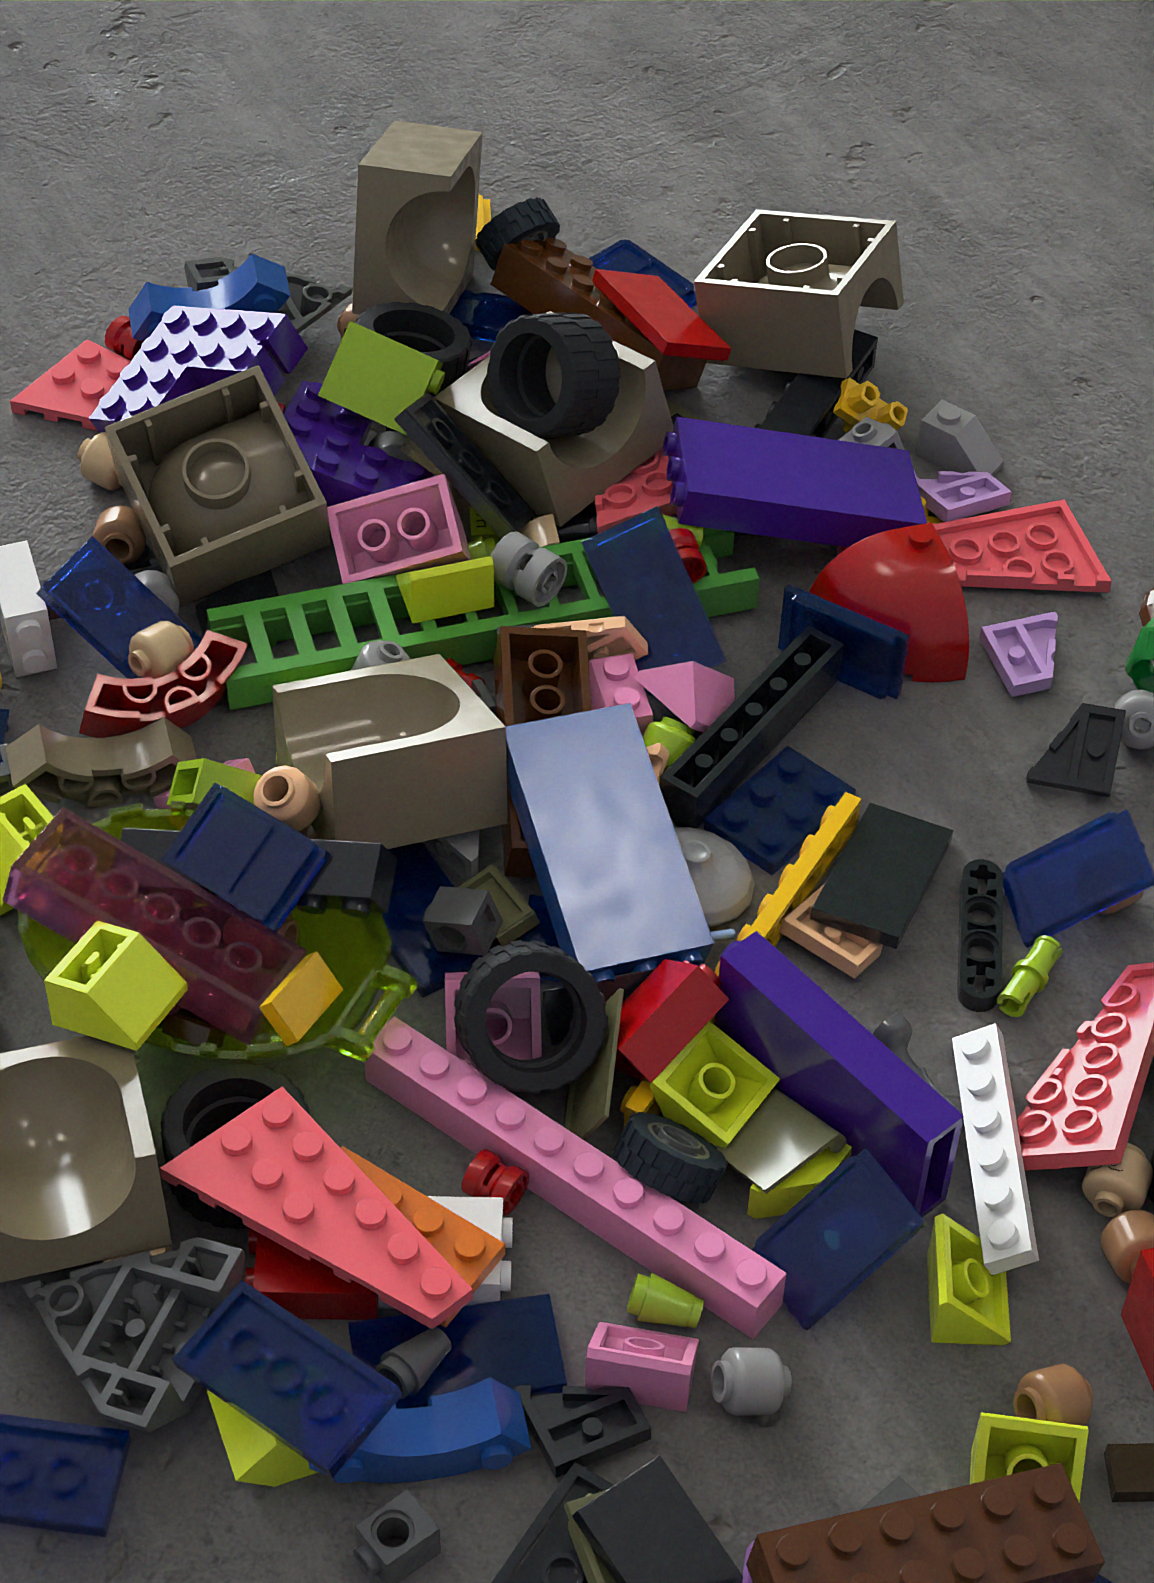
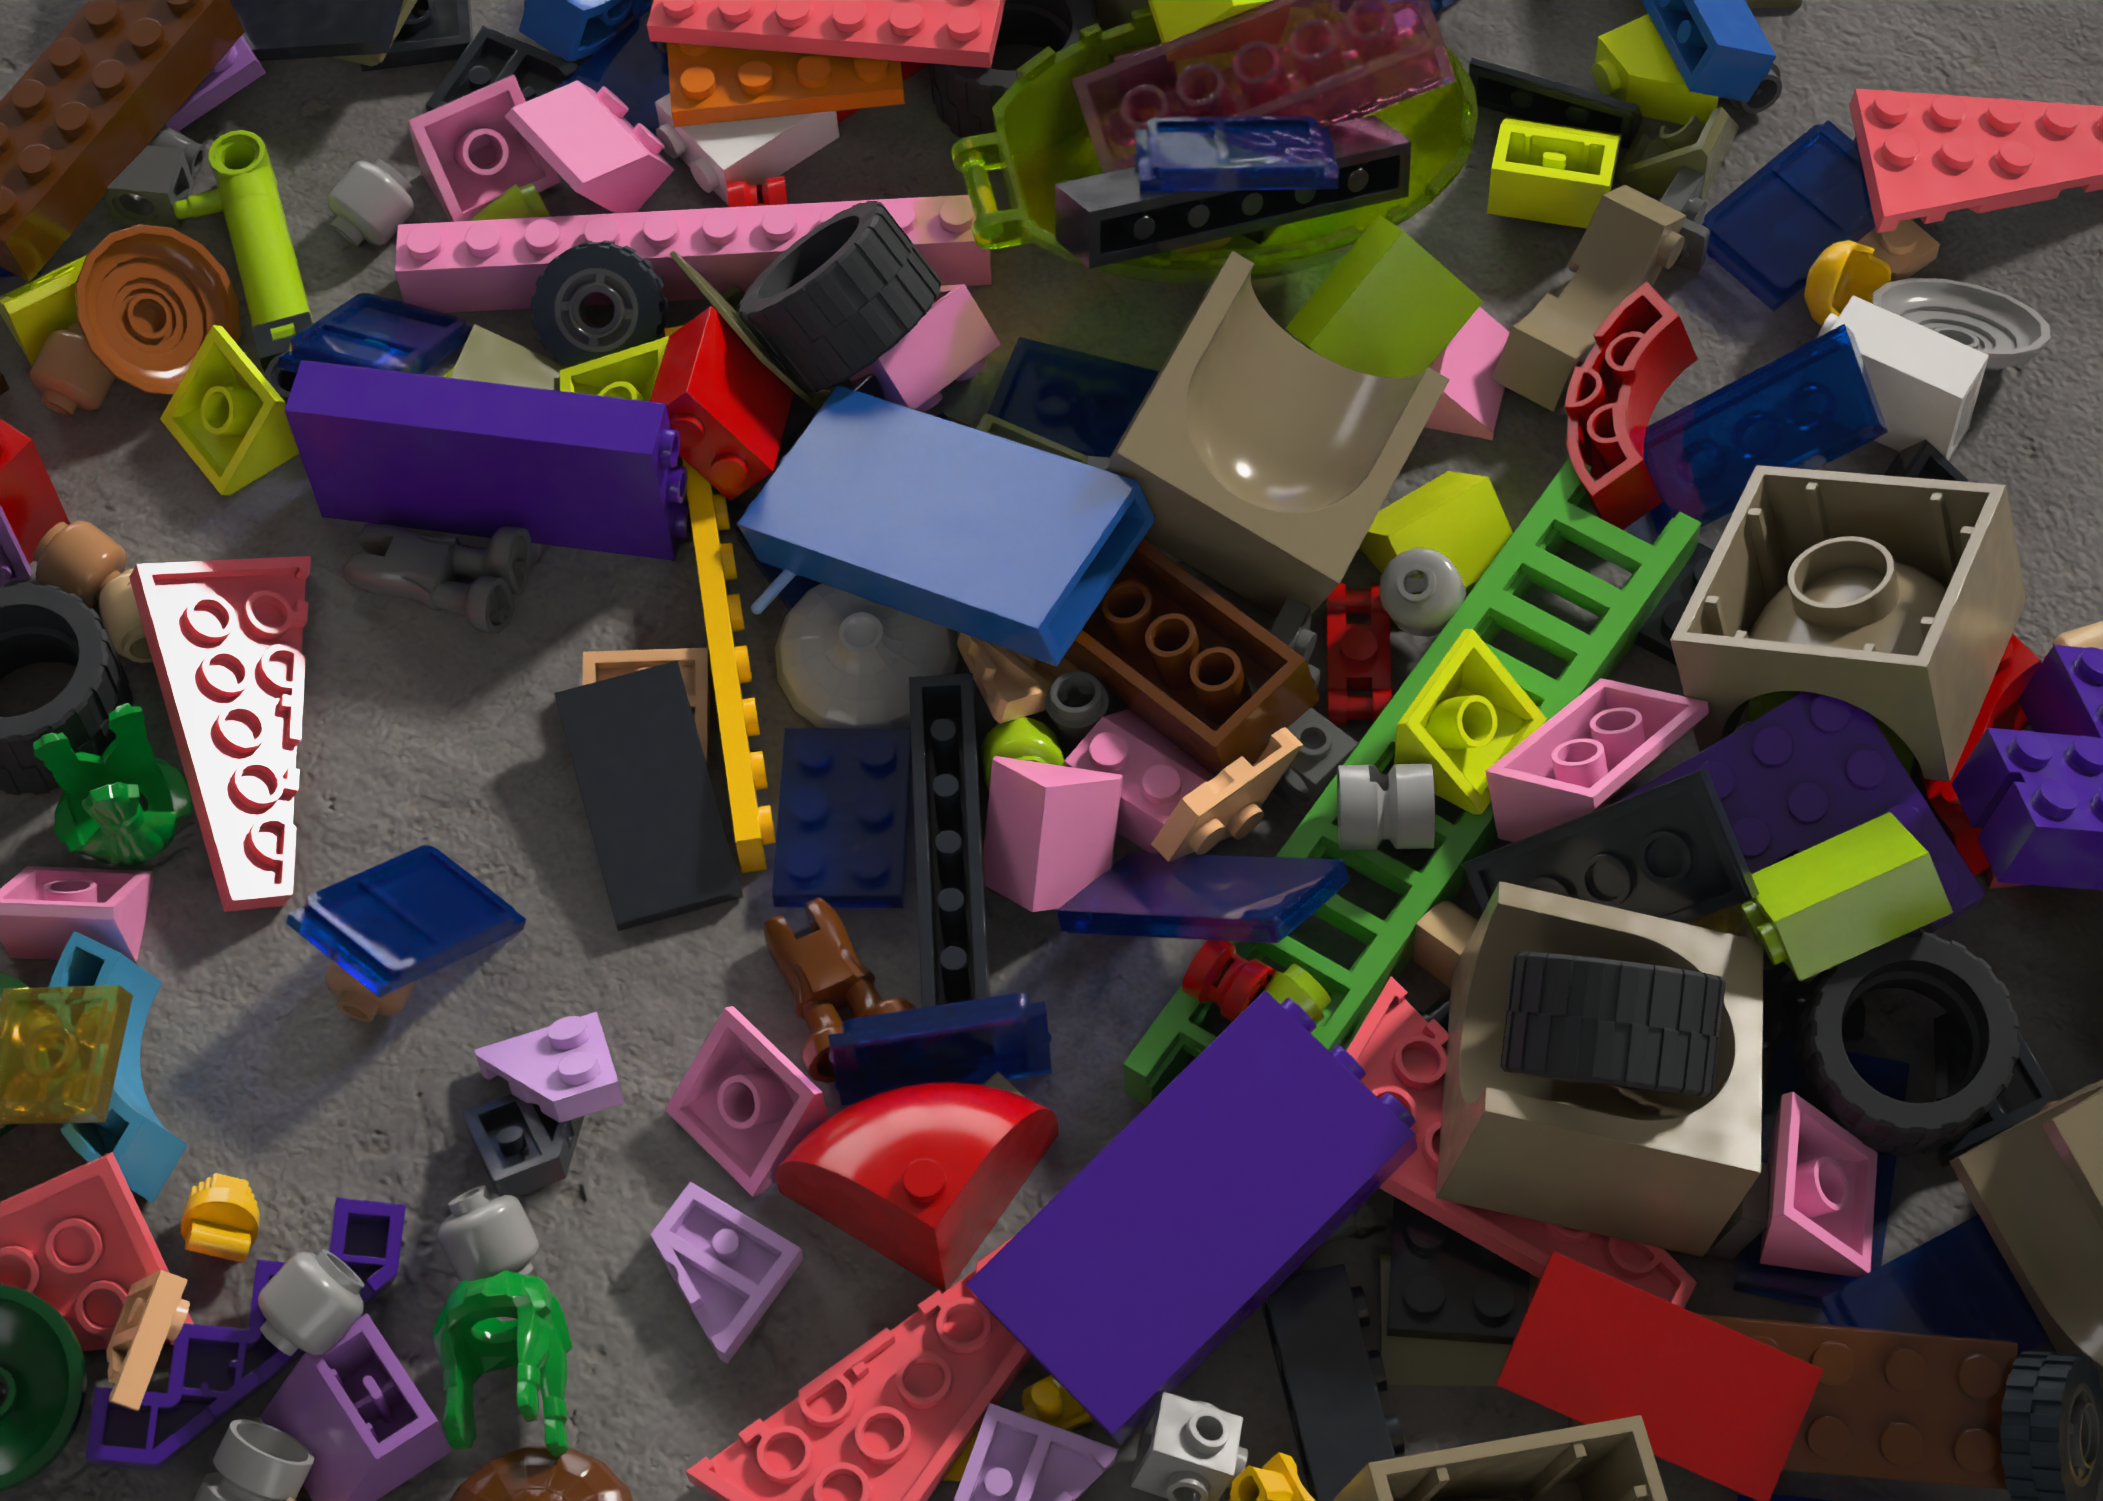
camera: 145 degrees right, 10 degrees up
(159, 649) = (1672, 421): tan head -> none
(288, 796) = (1292, 283): light nougat head -> none
(301, 998) = (1057, 127): yellow tile -> none
(462, 920) = (1026, 382): dark grey brick -> none
(576, 1274) = (594, 145): none -> bright pink slope
(861, 730) = (824, 979): none -> reddish brown piece
(861, 1385) = (260, 246): none -> lime piece
(952, 702) = (746, 1102): none -> bright pink slope
(972, 1377) = (151, 303): none -> dark orange hat
(980, 934) = (486, 821): black beam -> none
(994, 1150) = (294, 558): white plate -> none
(1029, 976) = (394, 795): lime pin -> none
(1042, 774) = (557, 1067): none -> lavender wing

